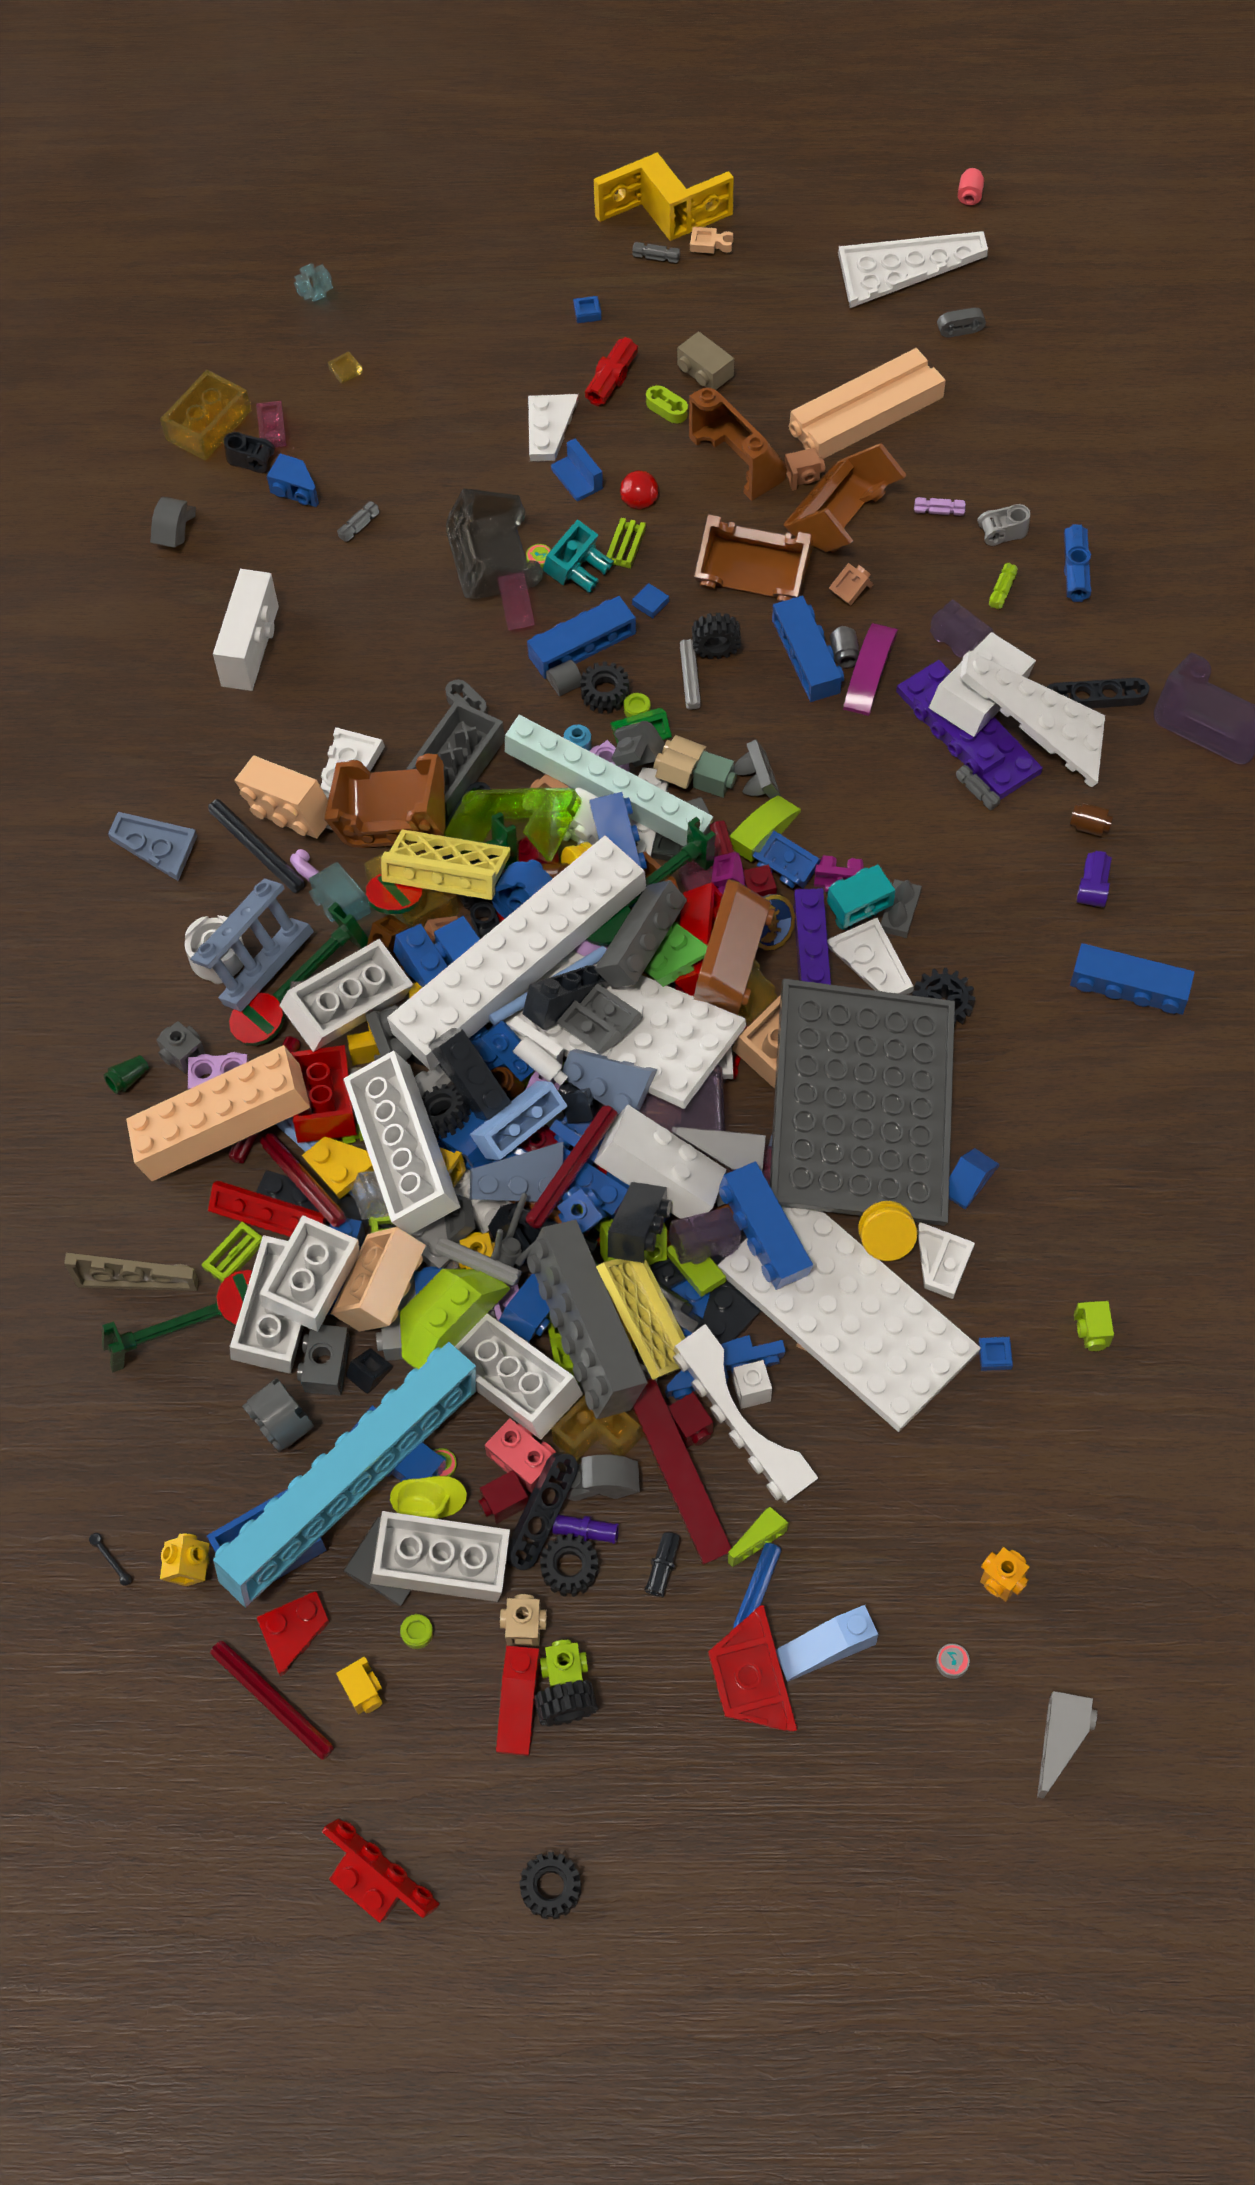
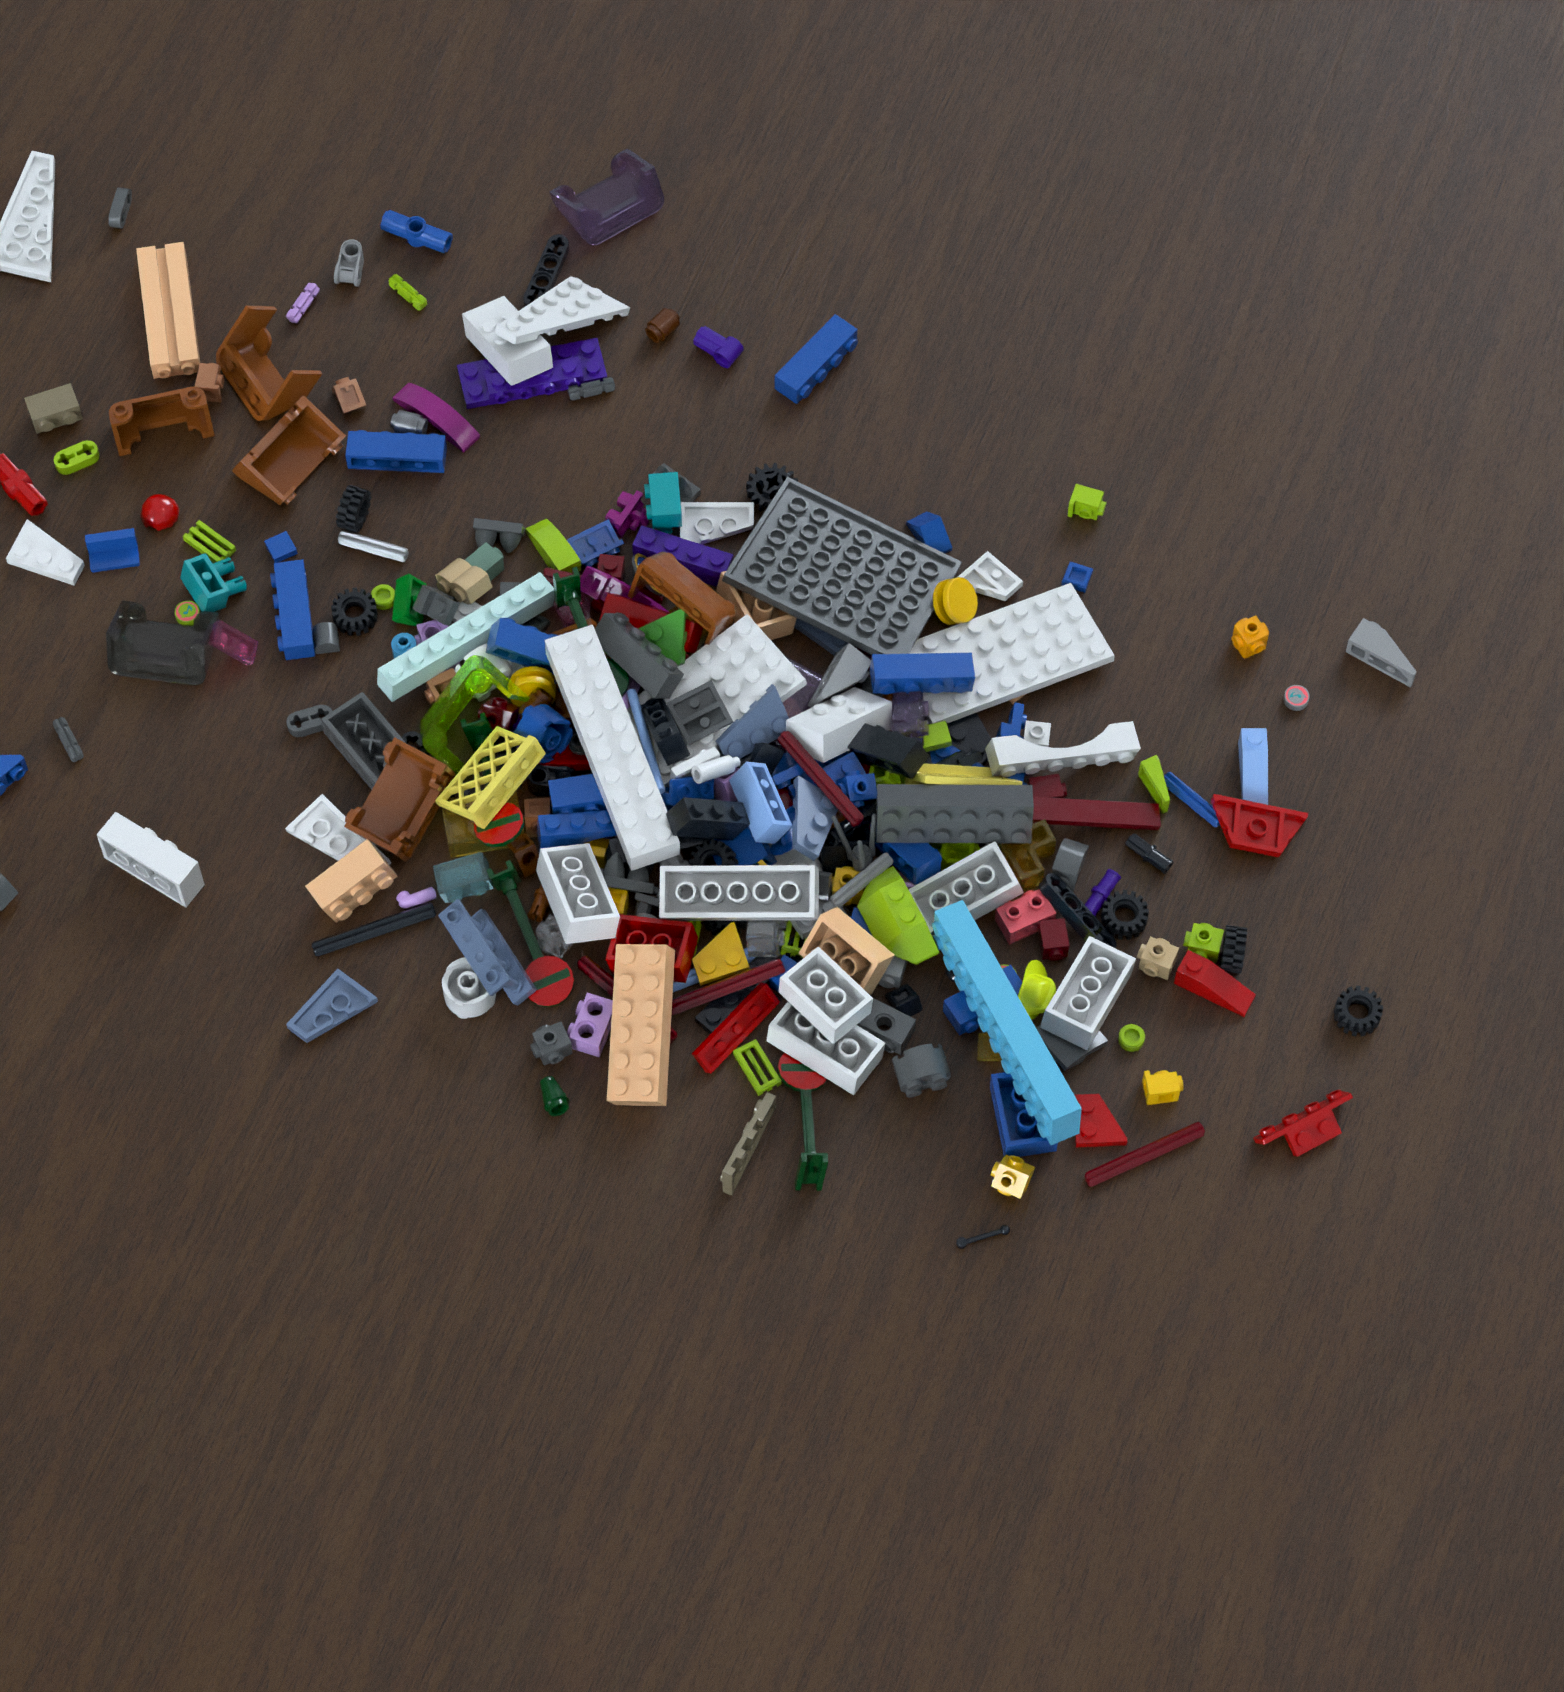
camera: 70 degrees left, 0 degrees up
(958, 628) = (438, 338): clear purple brick -> none

